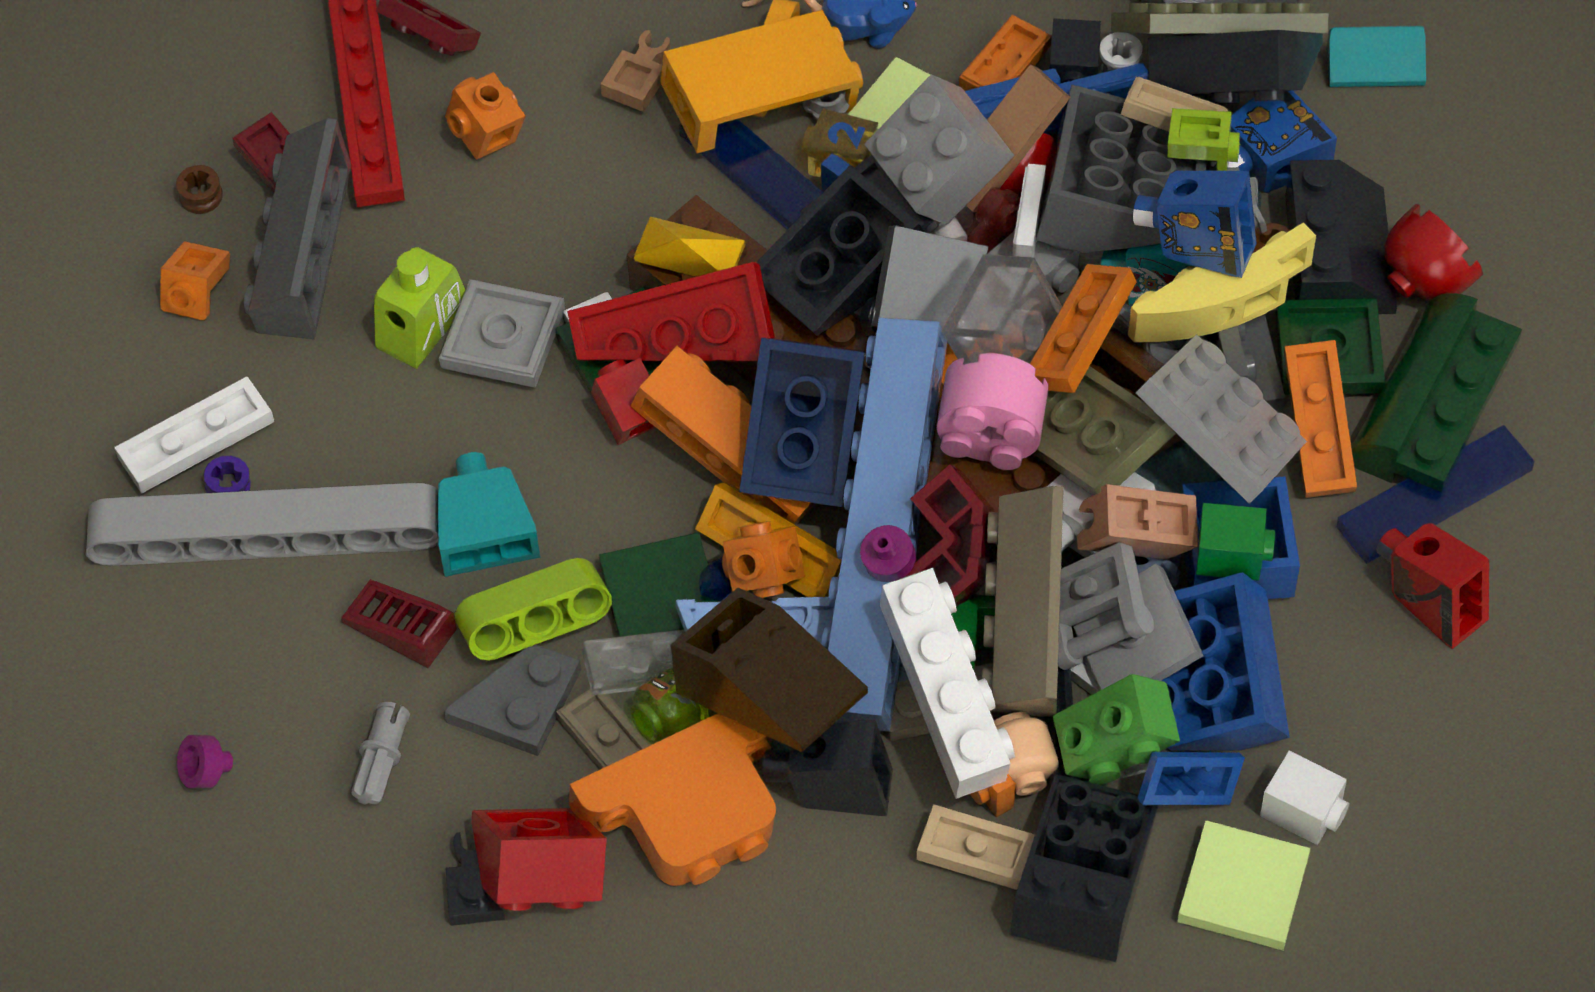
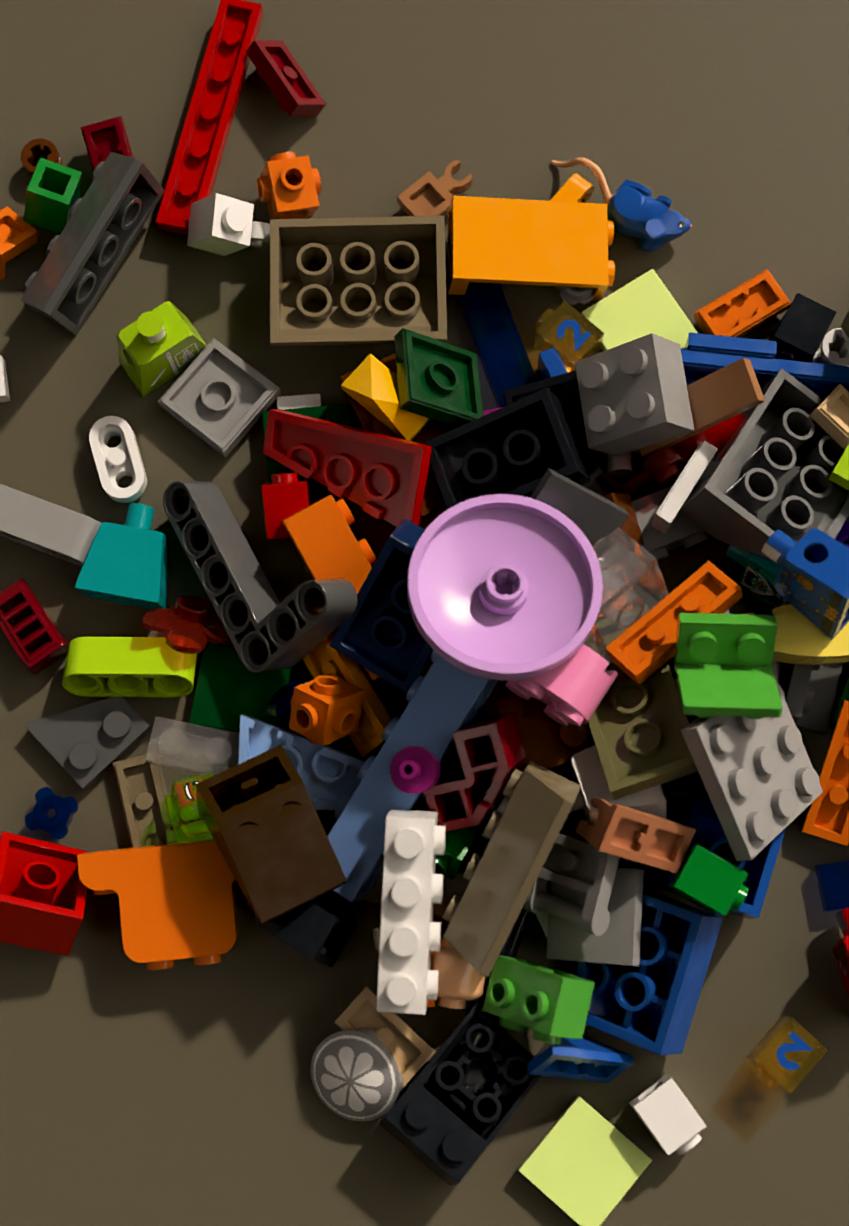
camera: 25 degrees right, 20 degrees up
(234, 209) = (51, 195): none -> green brick
(424, 432) = (117, 461): none -> white plate
(433, 169) = (225, 225): none -> white brick
(518, 797) = (59, 823): none -> clear blue plate
(577, 543) = (187, 625): none -> clear red plate
(599, 163) = (356, 279): none -> dark tan slope
(623, 482) = (260, 628): none -> dark grey beam
(729, 213) = (437, 379): none -> dark green tile
(899, 331) = (504, 587): none -> lavender dish
(964, 888) = (355, 1075): none -> dish
(1147, 324) = (726, 665): none -> bright green bracket
(1394, 695) = (785, 1055): none -> clear yellow brick

